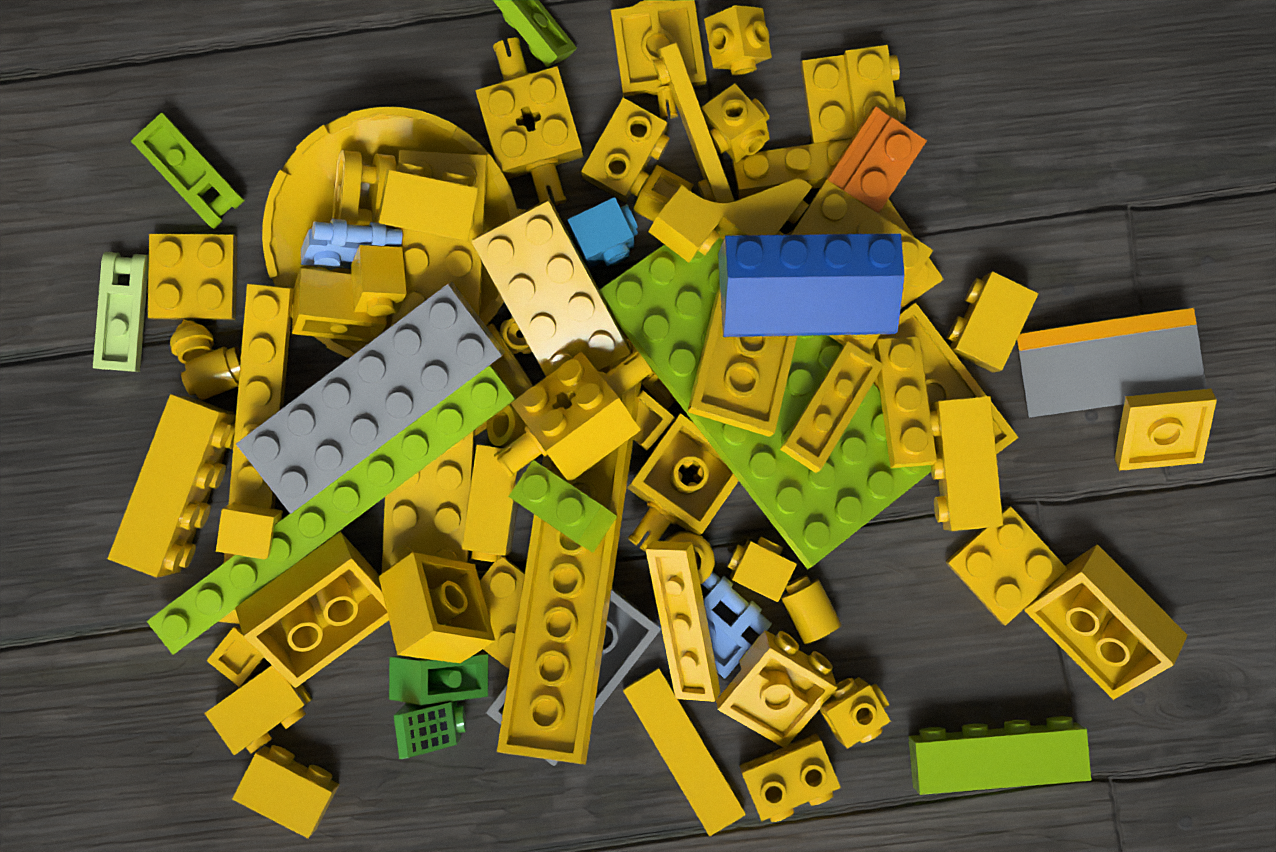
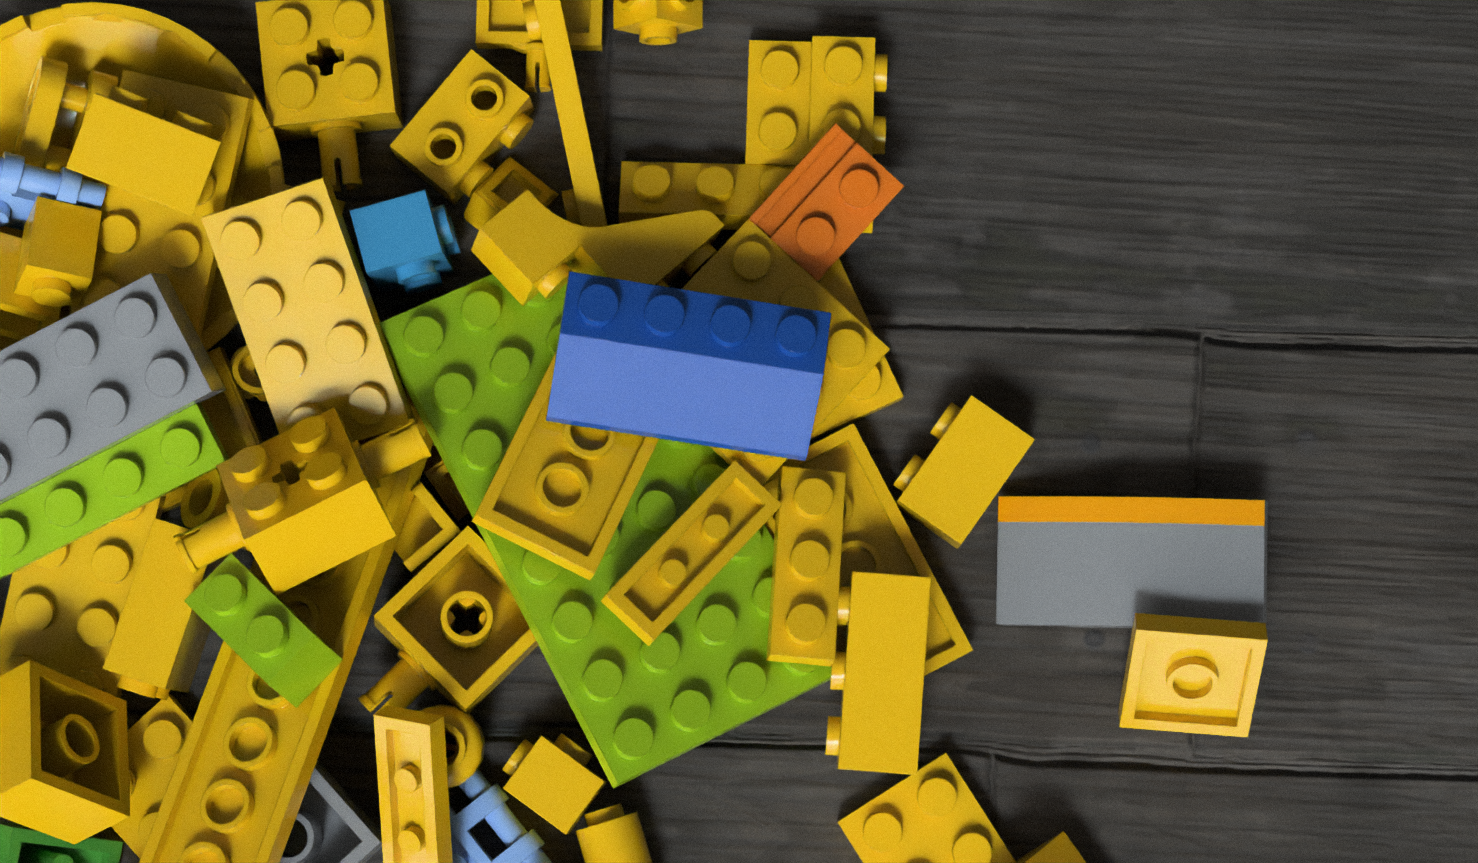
camera: 15 degrees right, 5 degrees down
(736, 123) = (632, 115): yellow brick -> none

